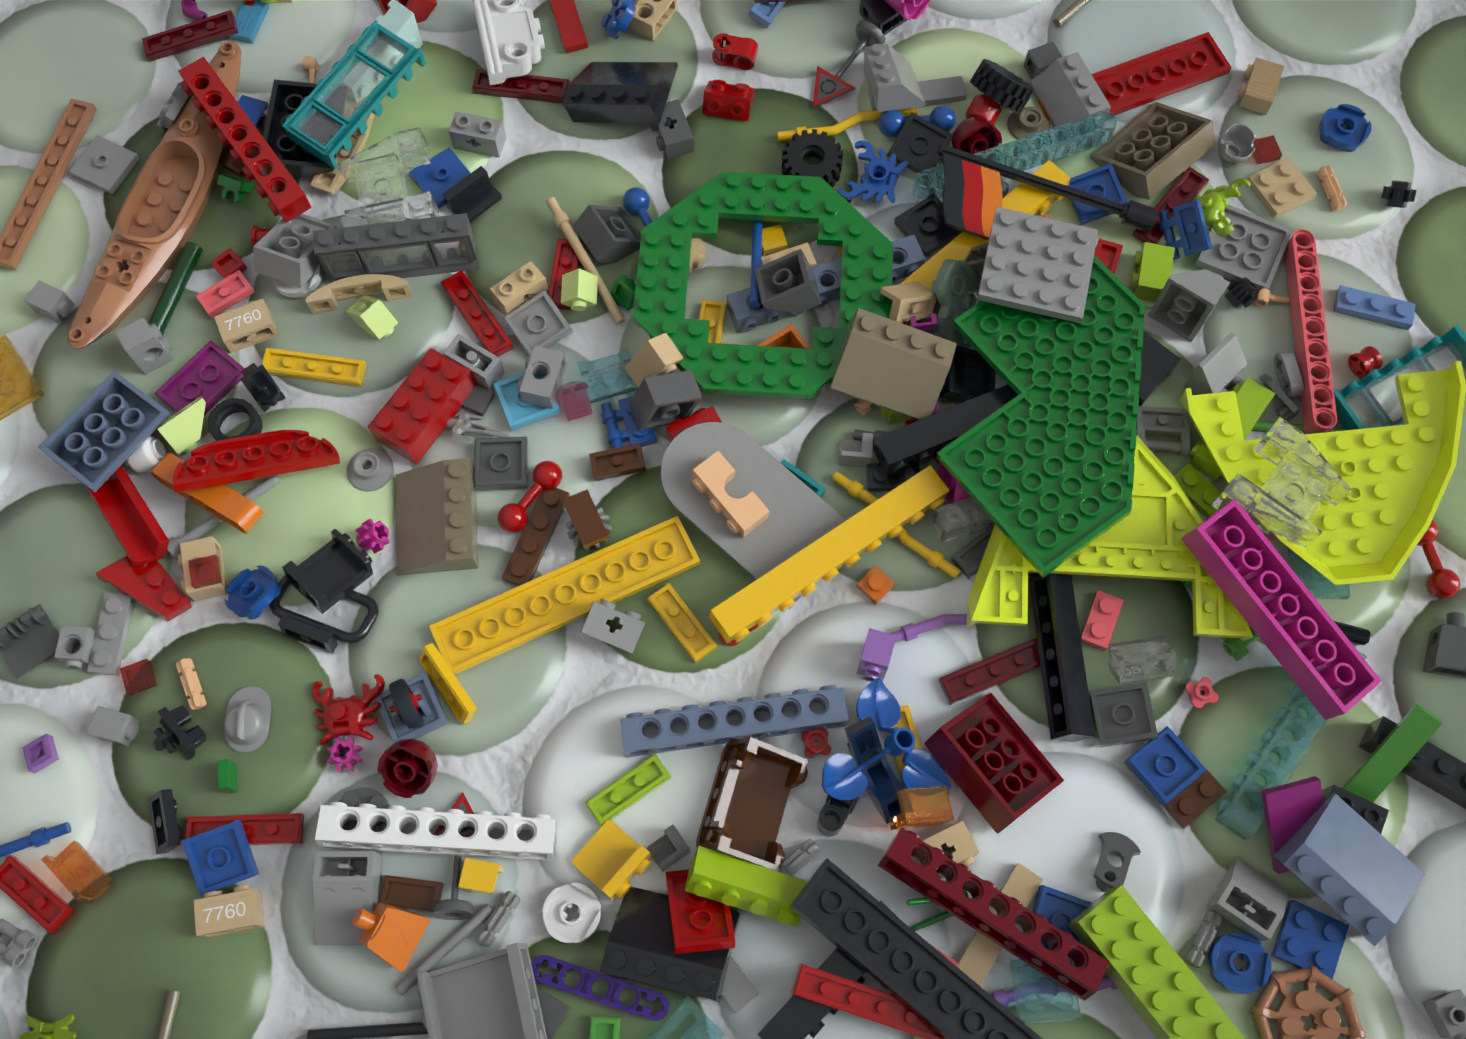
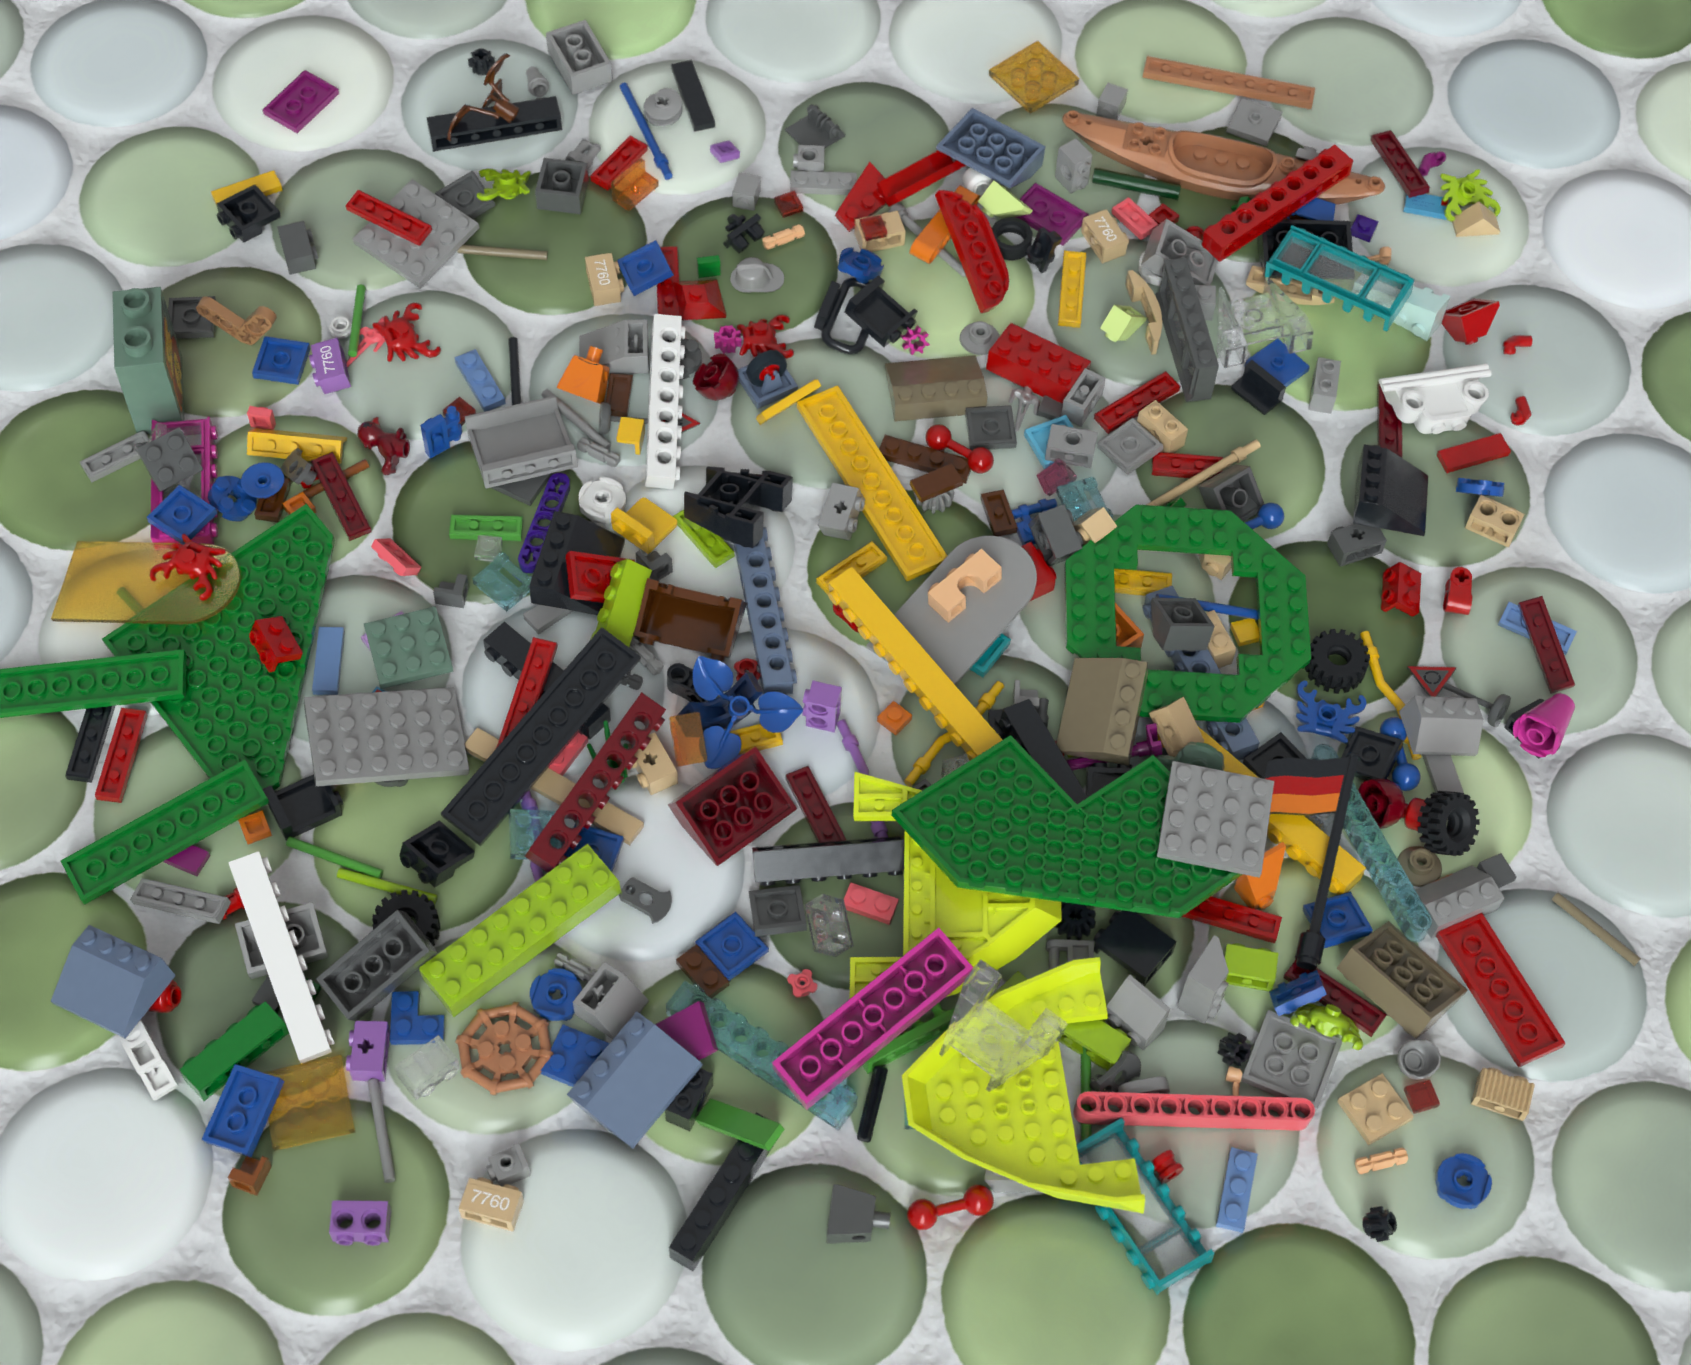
camera: 85 degrees right, 10 degrees down
(65, 970) = (562, 186): none -> dark grey brick
(164, 821) = (682, 231): black plate -> none
(266, 77) = (1364, 228): none -> dark purple plate
(276, 789) = (699, 299): none -> red slope
(579, 289) = (1165, 472): yellowish green brick -> none
(599, 752) = (729, 500): none -> black wedge

